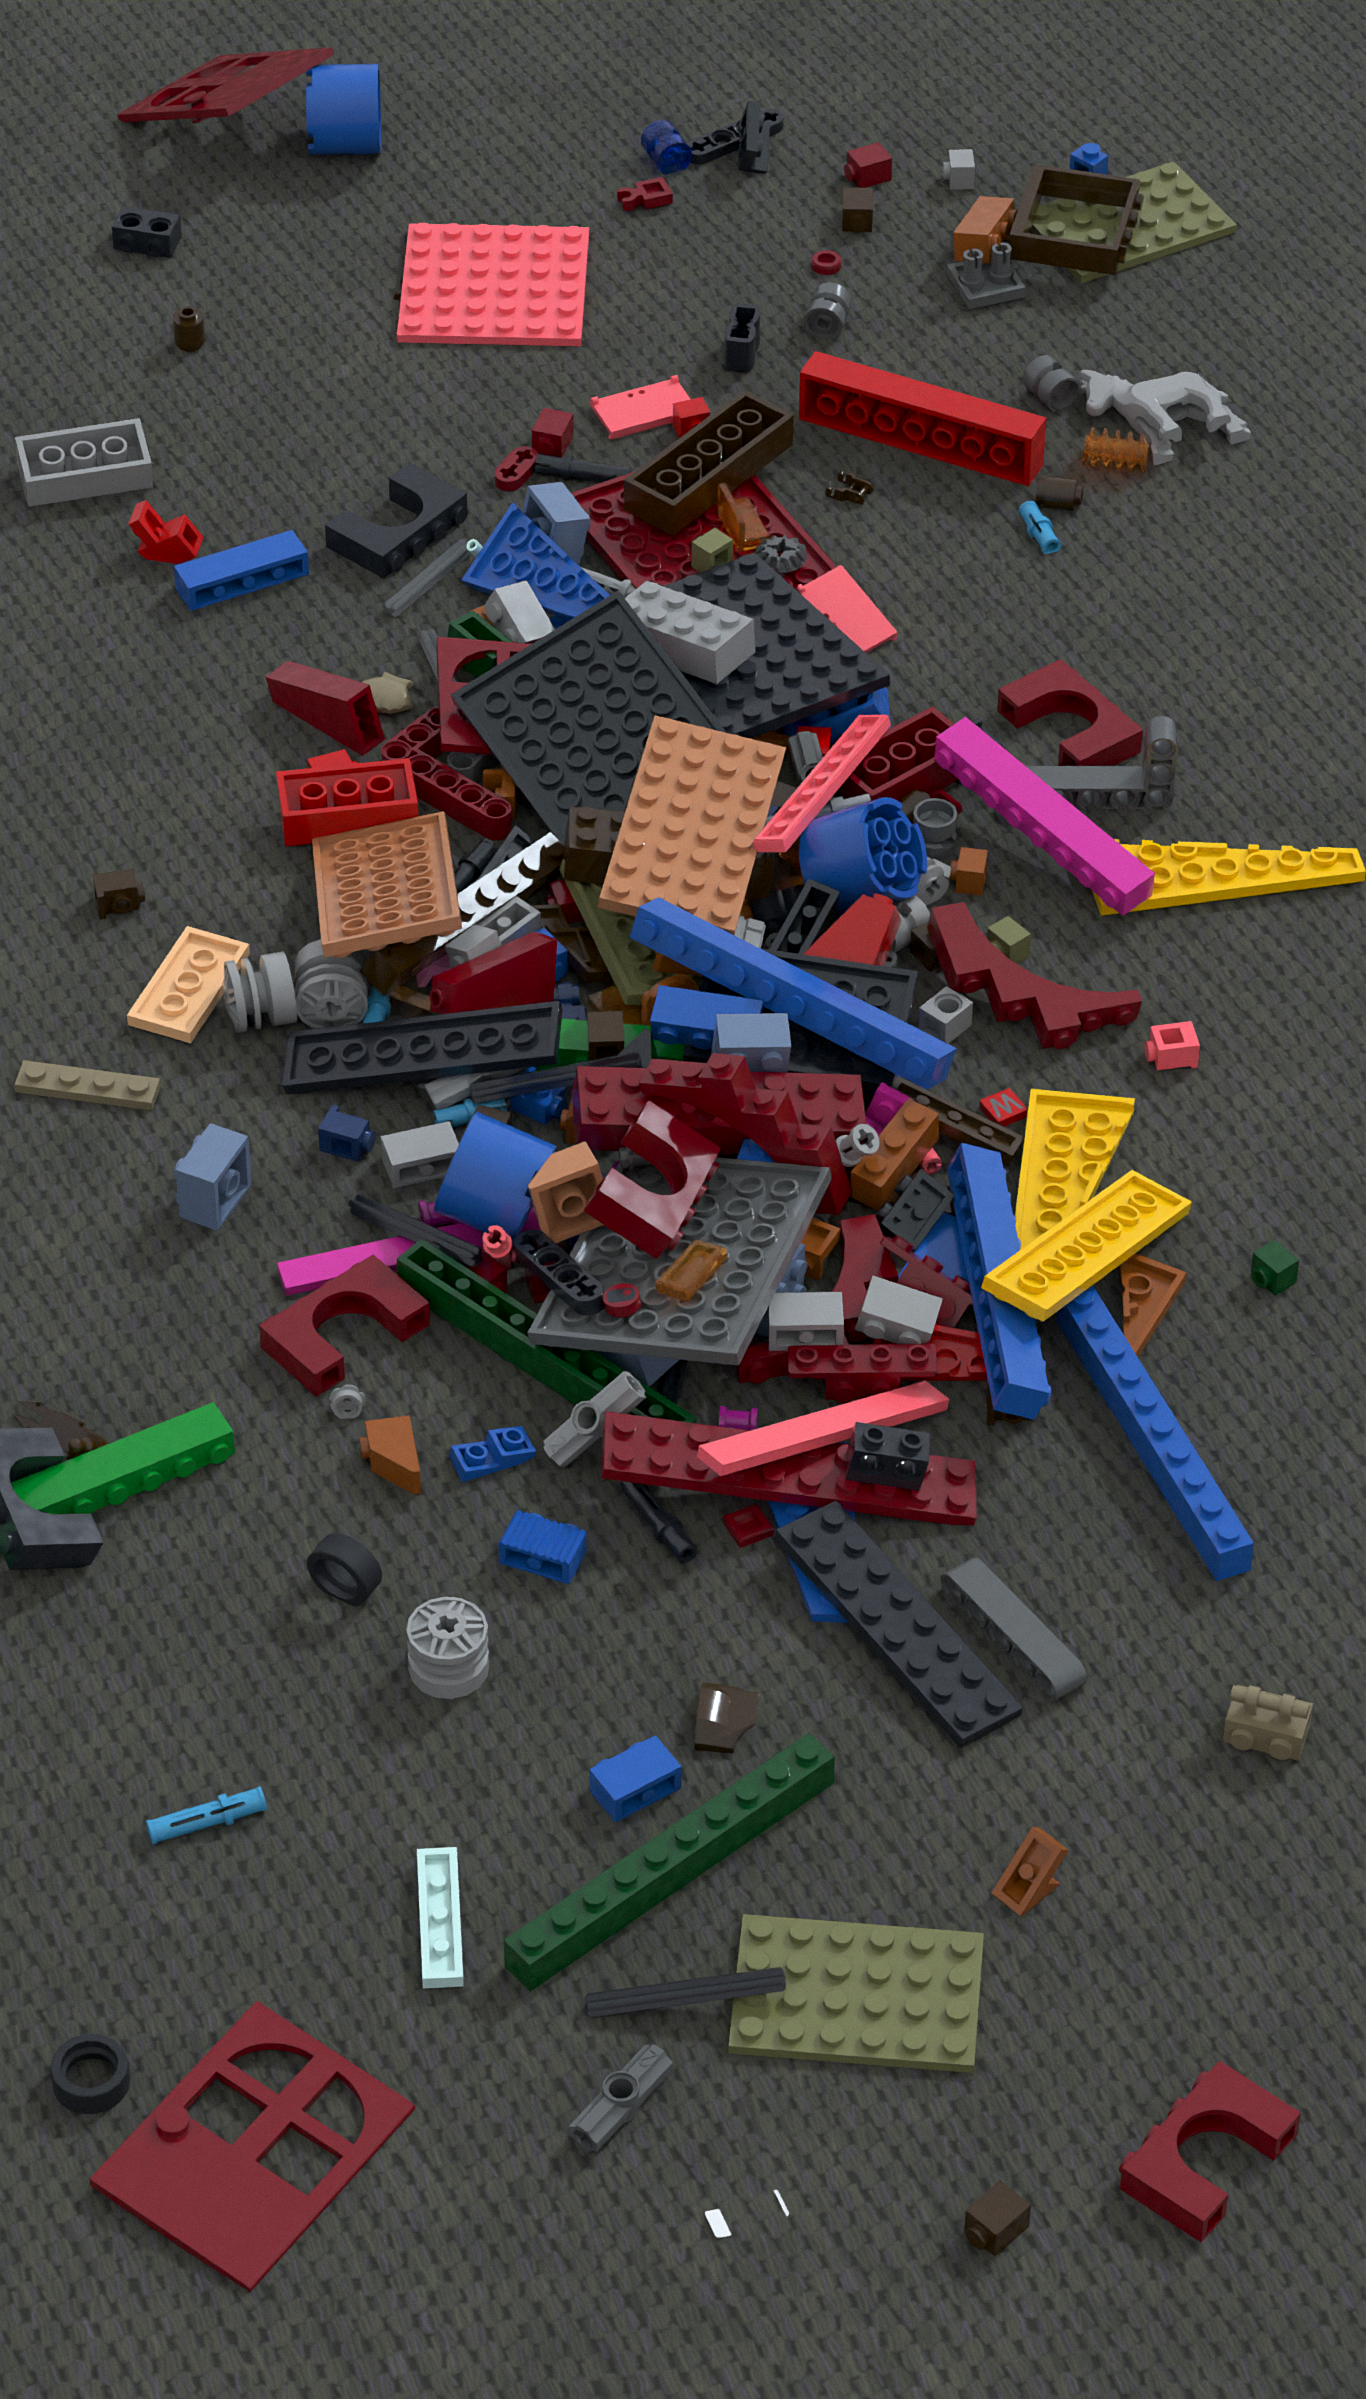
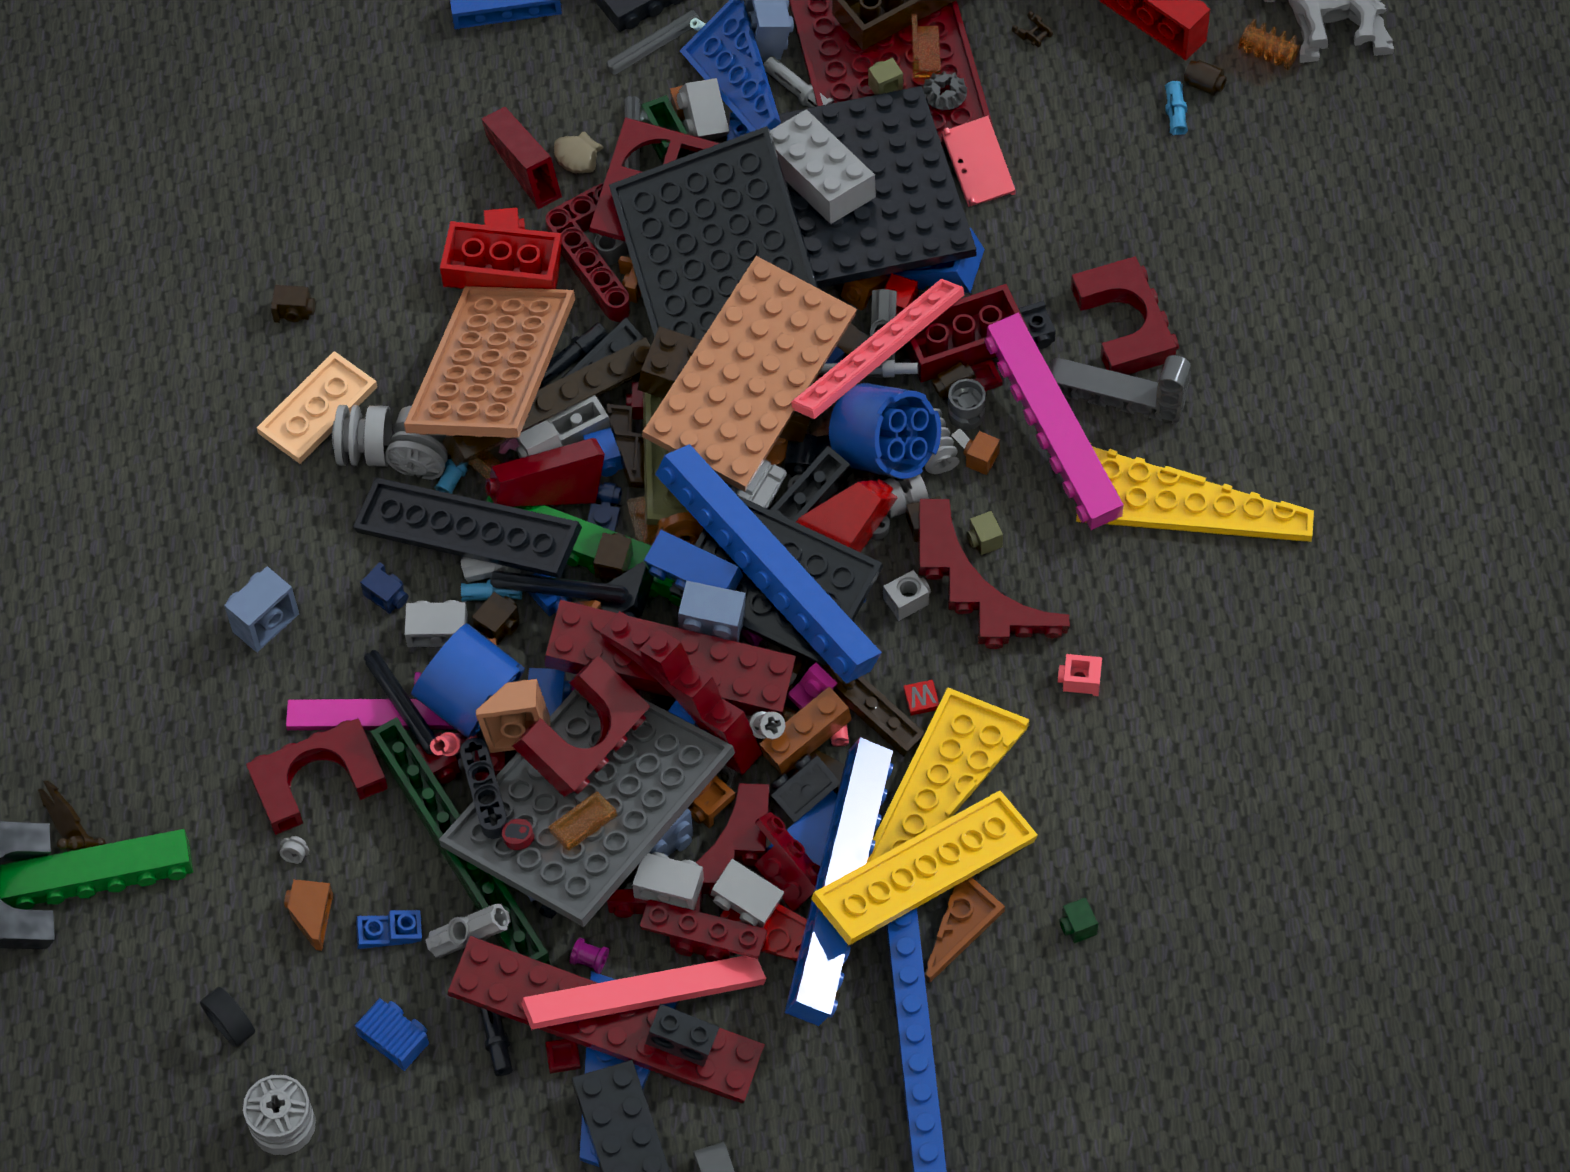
camera: 20 degrees right, 15 degrees up
(87, 1085) = (206, 485): dark tan plate -> none

